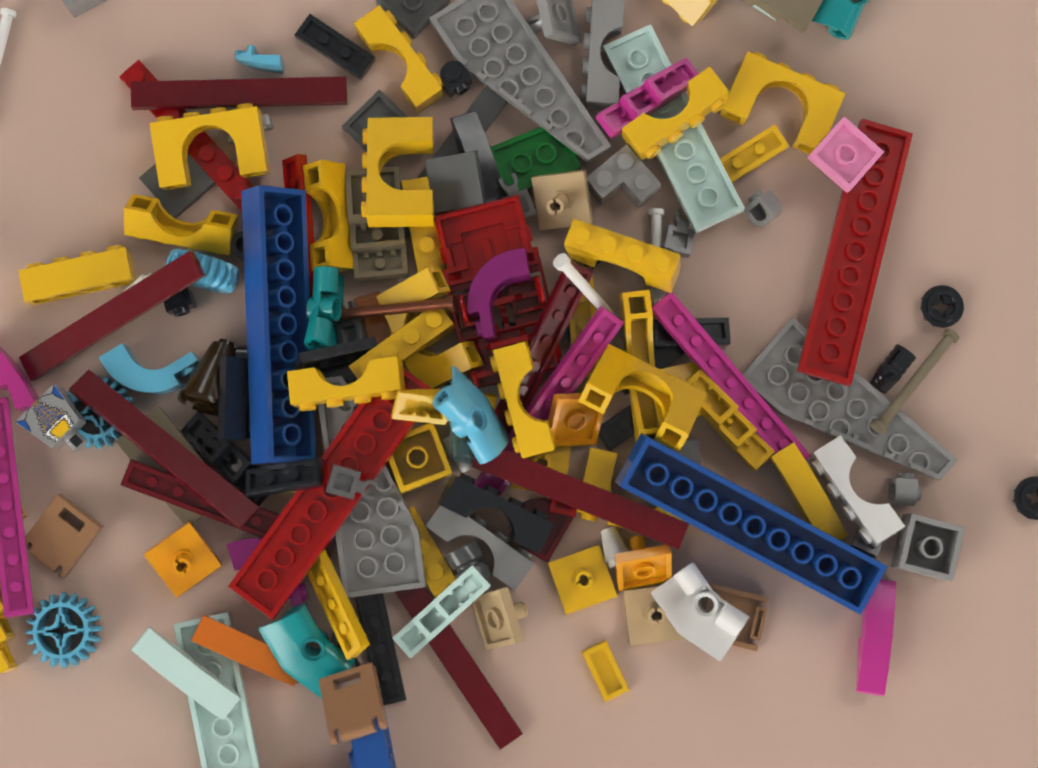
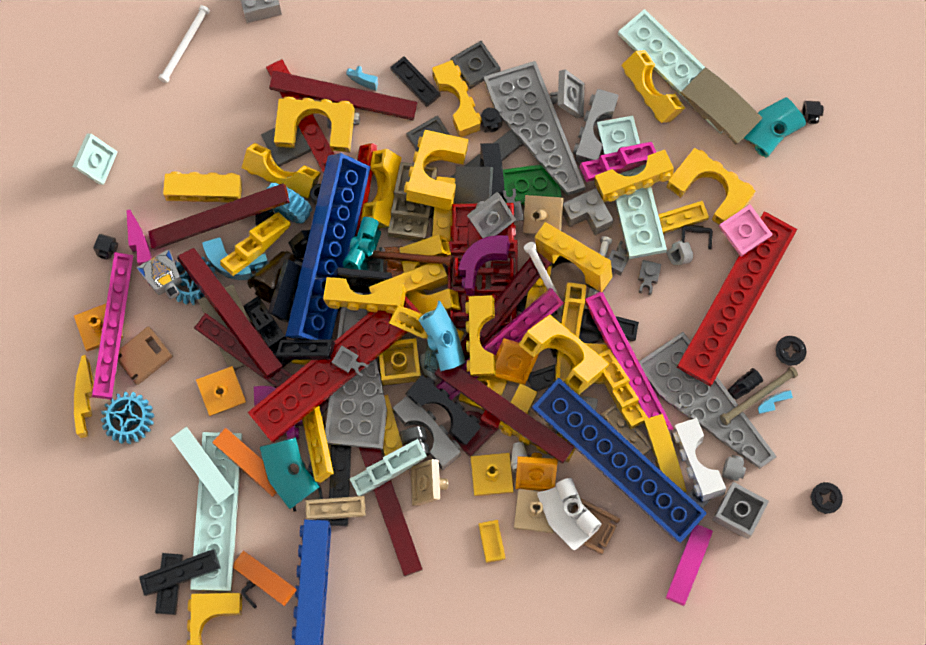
camera: 20 degrees right, 10 degrees down
(175, 341) = (258, 242): none -> yellow slope
(235, 325) = (299, 243): none -> black bracket
(354, 706) = (311, 512): medium nougat container -> none
(397, 677) = (335, 508): none -> tan tile
(493, 225) = (491, 216): none -> light grey tile
(726, 246) = (649, 274): none -> flat silver plate
(759, 482) = (634, 436): none -> tan tile
(778, 165) = (697, 229): none -> black piece
(930, 388) = (768, 404): none -> medium azure slope

